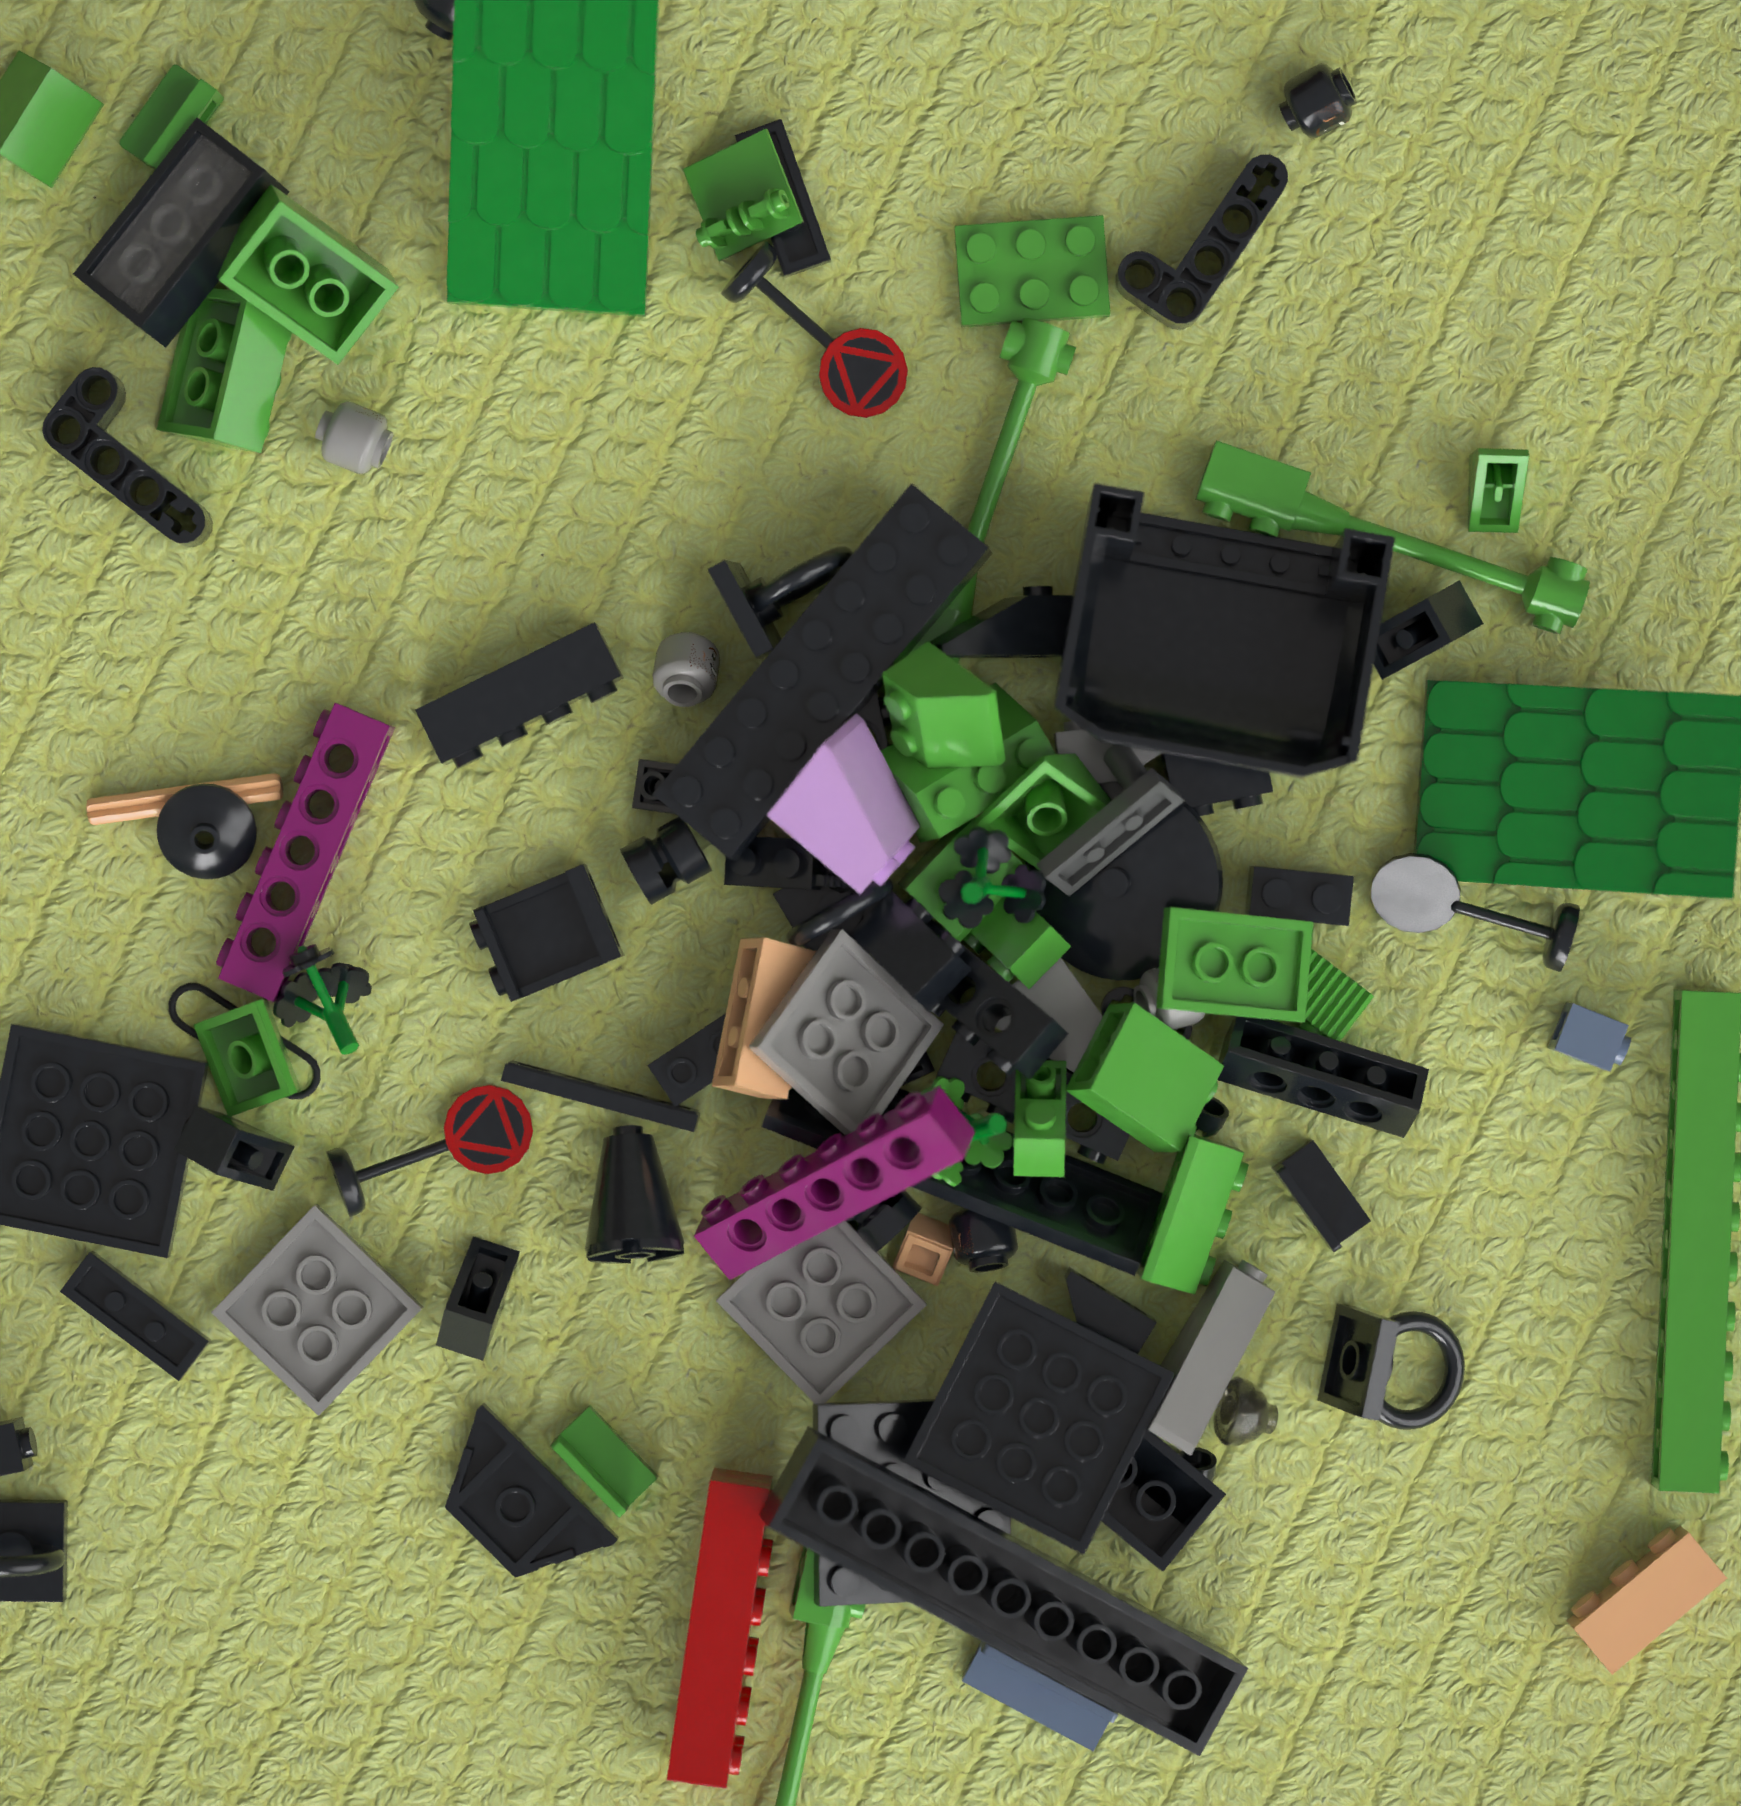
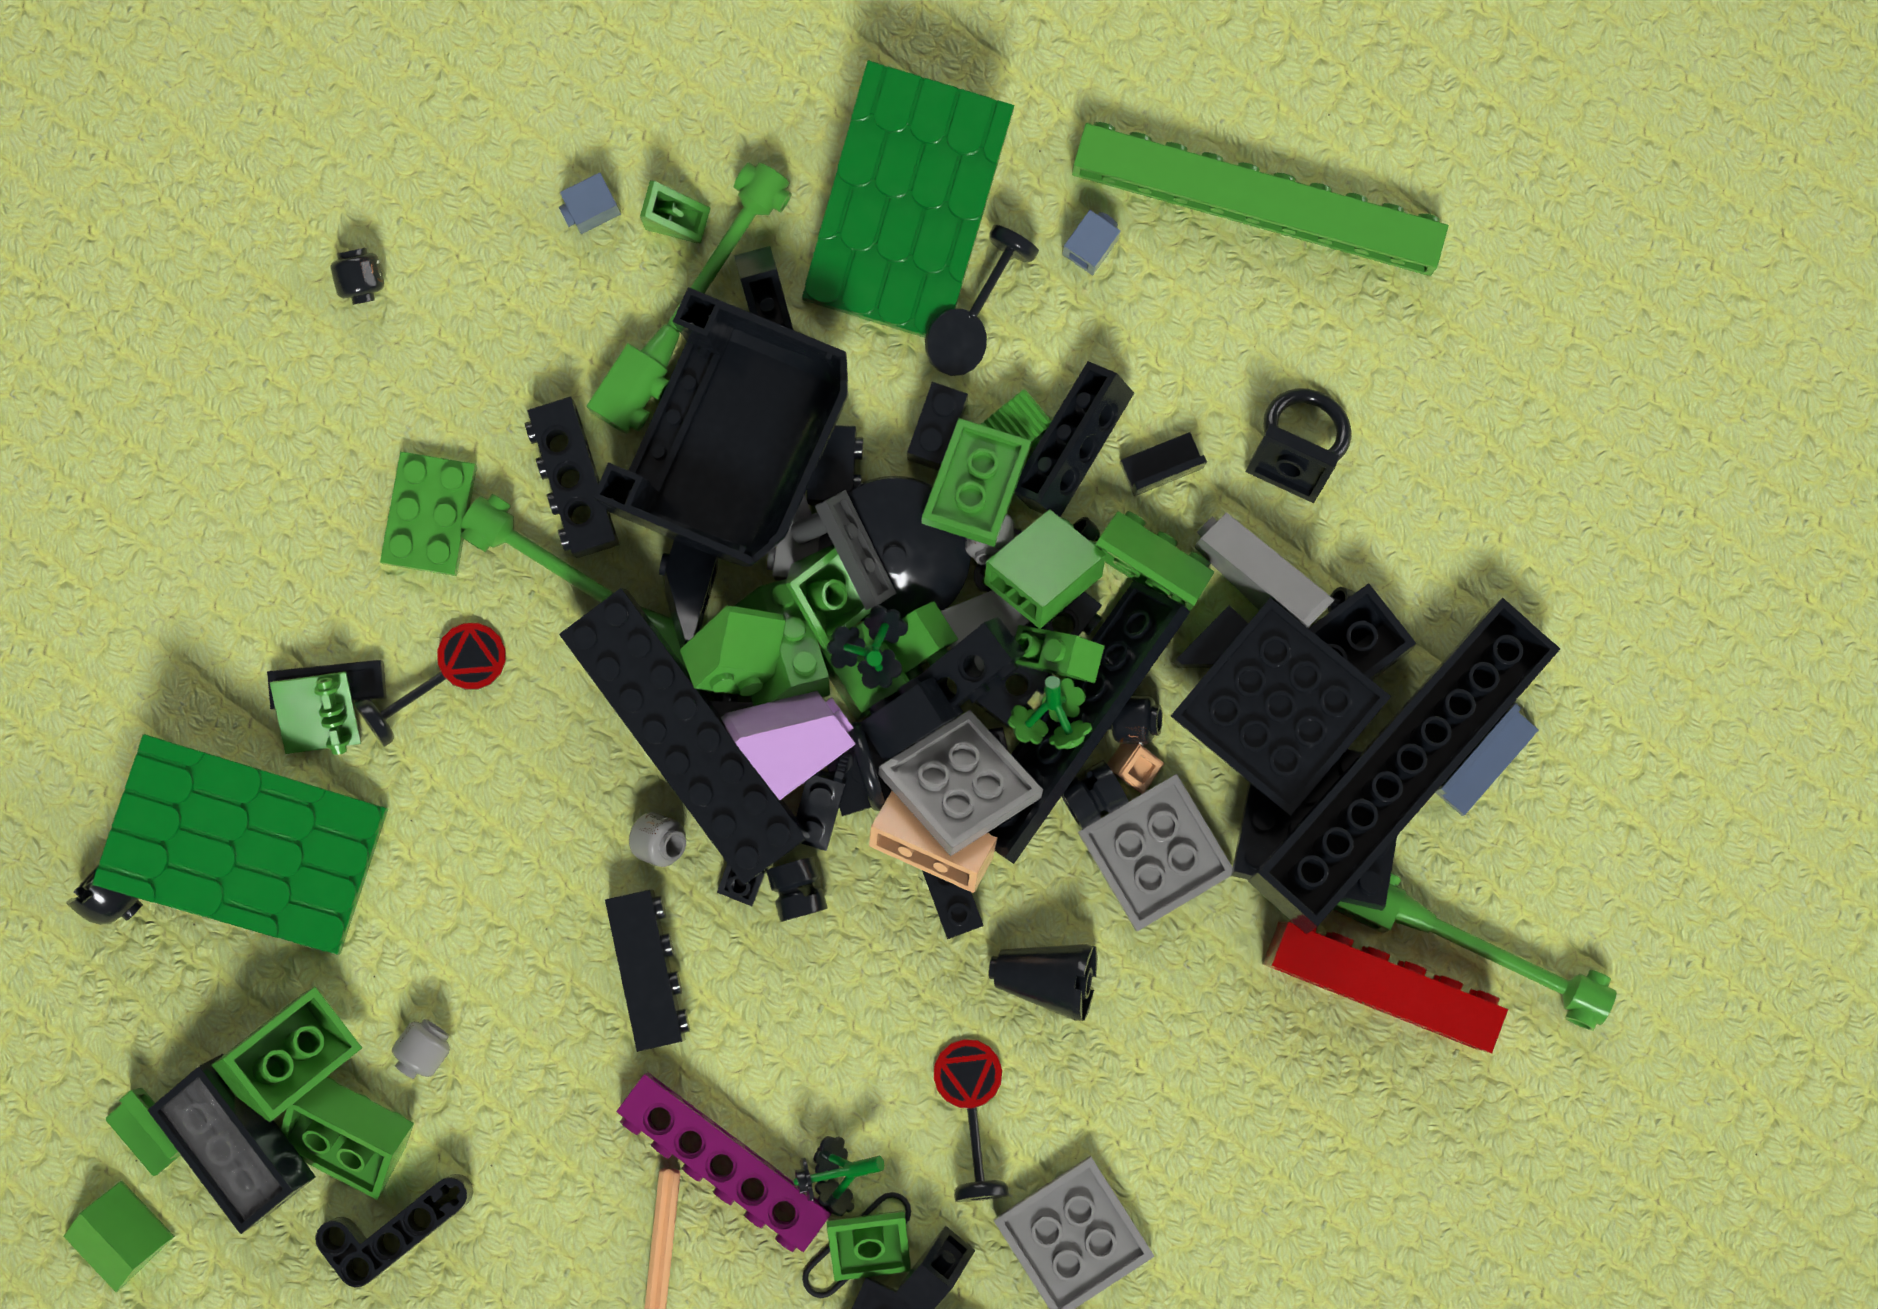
camera: 75 degrees left, 5 degrees down
(210, 810) = (677, 1222): black dish -> none
(477, 1298) = (1093, 1112): black slope -> none
(519, 1502) = (1255, 1118): black wing -> none
(546, 934) = (830, 994): black panel -> none
(600, 1095) = (962, 981): black tile -> none
(604, 1460) = (1238, 1045): bright green panel -> none
(759, 603) = (621, 771): black tile -> none
(800, 1200) = (1099, 900): magenta brick -> none
(1194, 413) = (563, 419): none -> black brick
(1213, 239) = (439, 374): black beam -> none
(1243, 1413) = (1312, 557): clear smoke brick -> none
(1483, 375) = (588, 204): none -> sand blue brick
(1645, 1597) = (1514, 298): light nougat brick -> none

